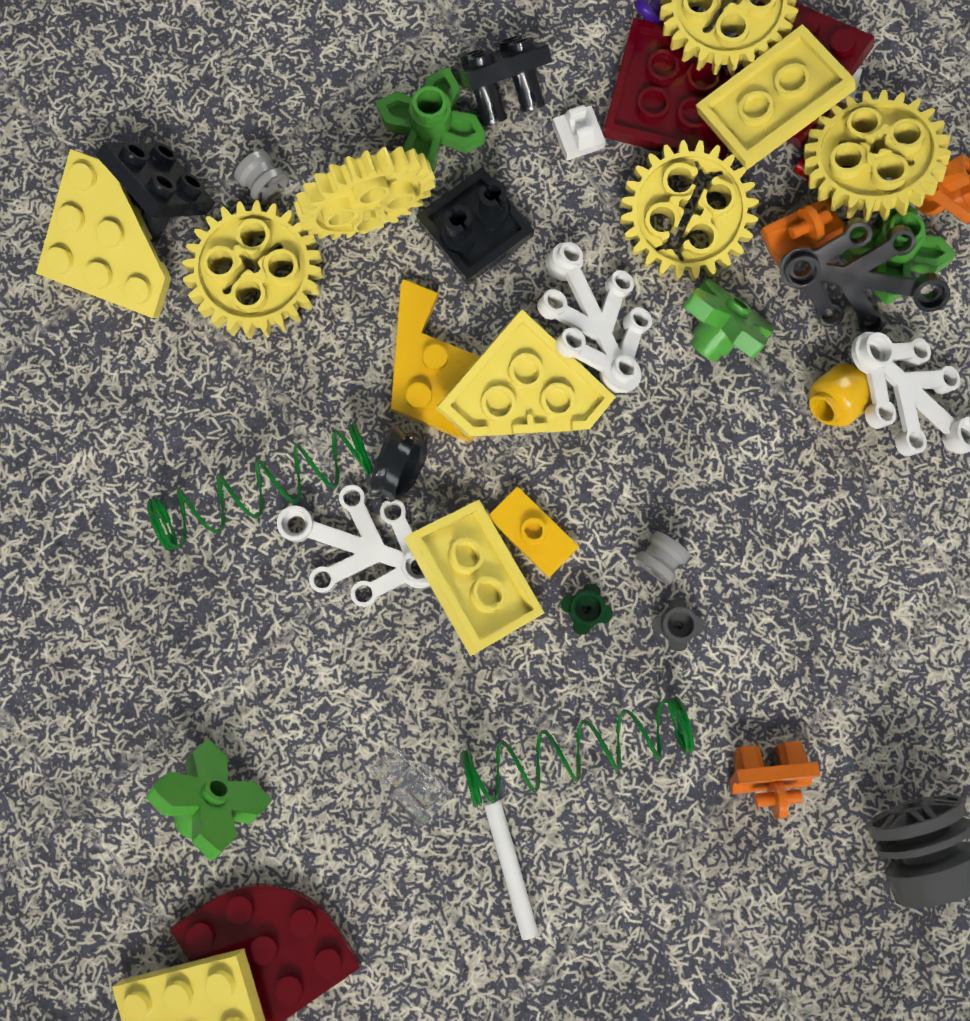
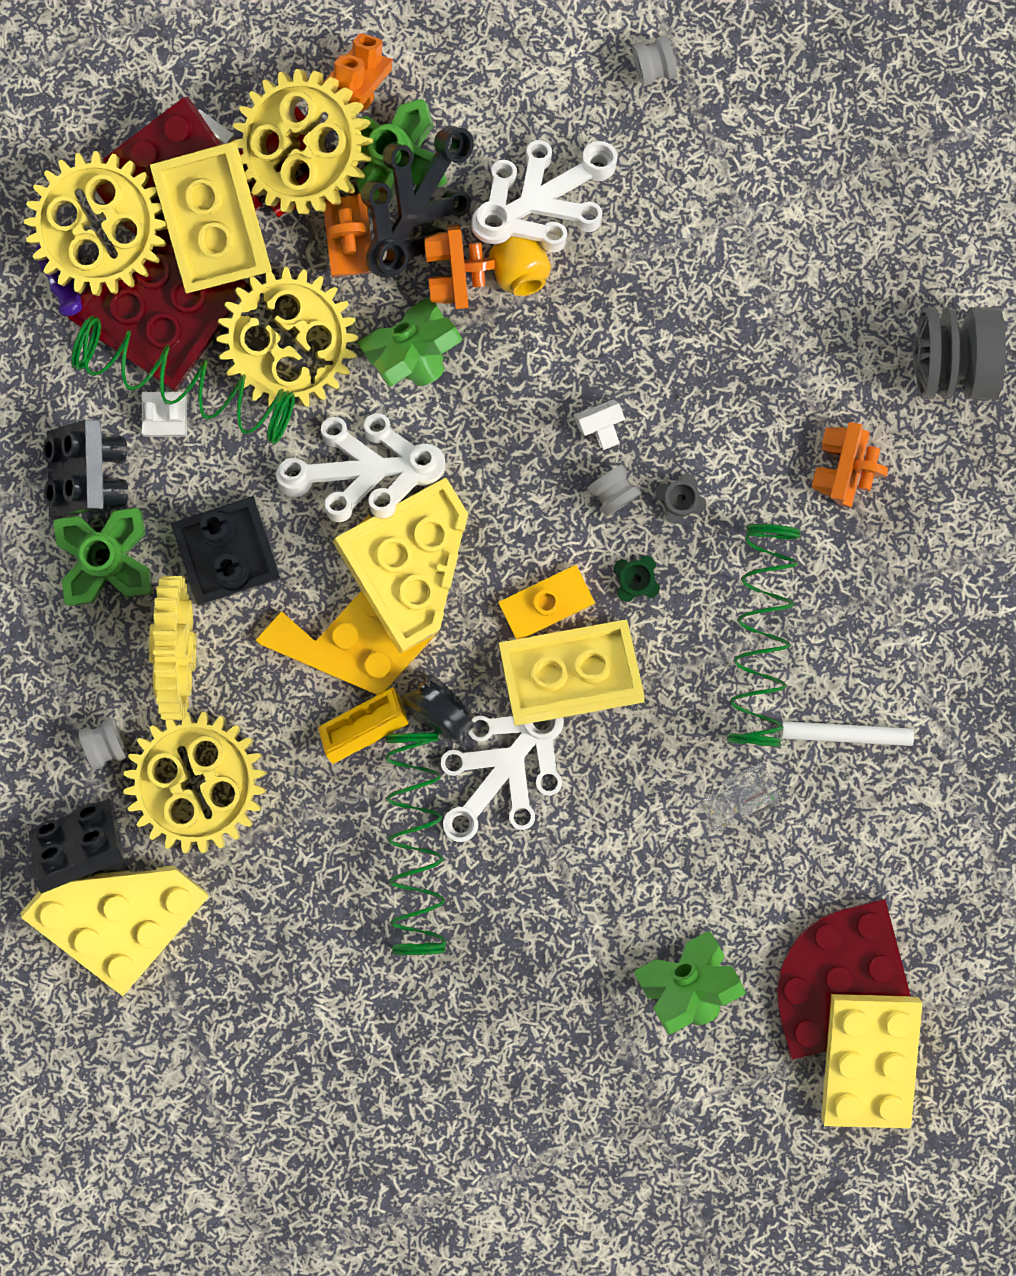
camera: 65 degrees left, 5 degrees up
(356, 400) = (363, 725): none -> yellow plate
(615, 210) = (284, 400): none -> green piece
(722, 522) = (601, 421): none -> white tile
(831, 323) = (449, 247): none -> orange hips

